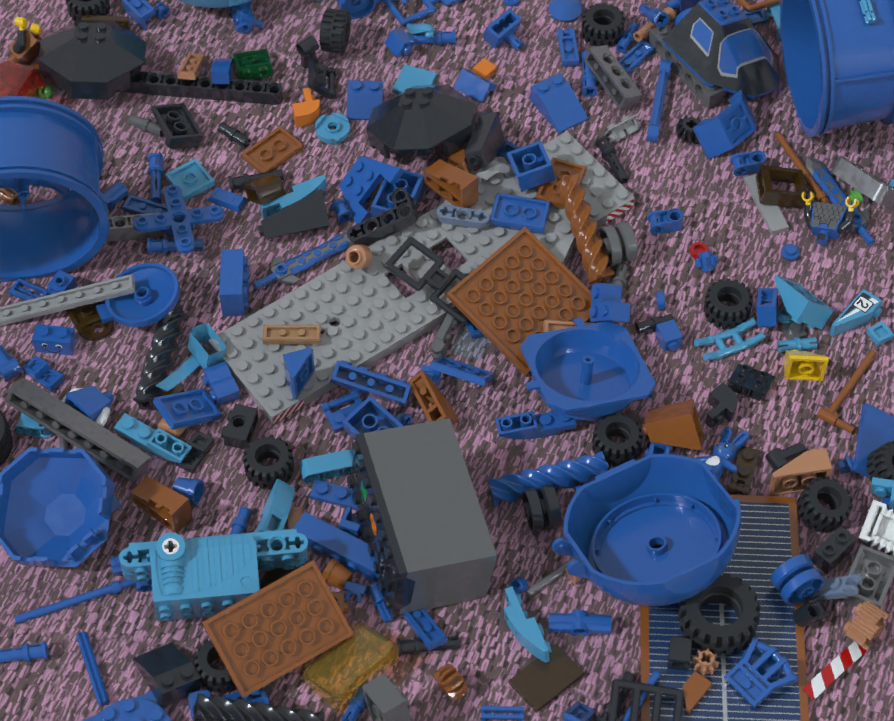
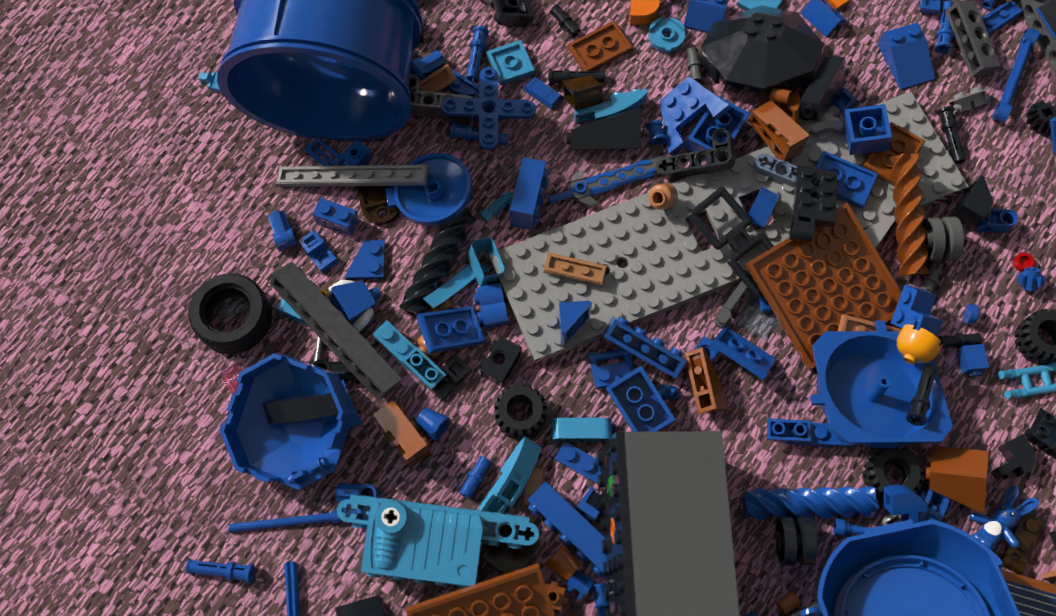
camera: 15 degrees right, 15 degrees up
(63, 495) = (300, 408): none -> black slope
(95, 371) = (368, 262): none -> blue wing
(125, 205) = (438, 80): none -> nougat tile
(206, 302) = (497, 206): none -> dark azure axle
(364, 147) = (694, 64): none -> dark grey pin
(446, 153) = (781, 95): none -> dark orange hinge
(452, 249) = (763, 207): none -> blue slope
(494, 231) = (807, 211): none -> black hinge
(548, 563) = (788, 602): none -> dark orange hinge
(611, 325) = (917, 345): none -> light orange cylinder
(622, 368) = (920, 403): none -> black pin
(626, 451) = (904, 502): none -> blue brick
(641, 209) = (974, 203): none -> black slope

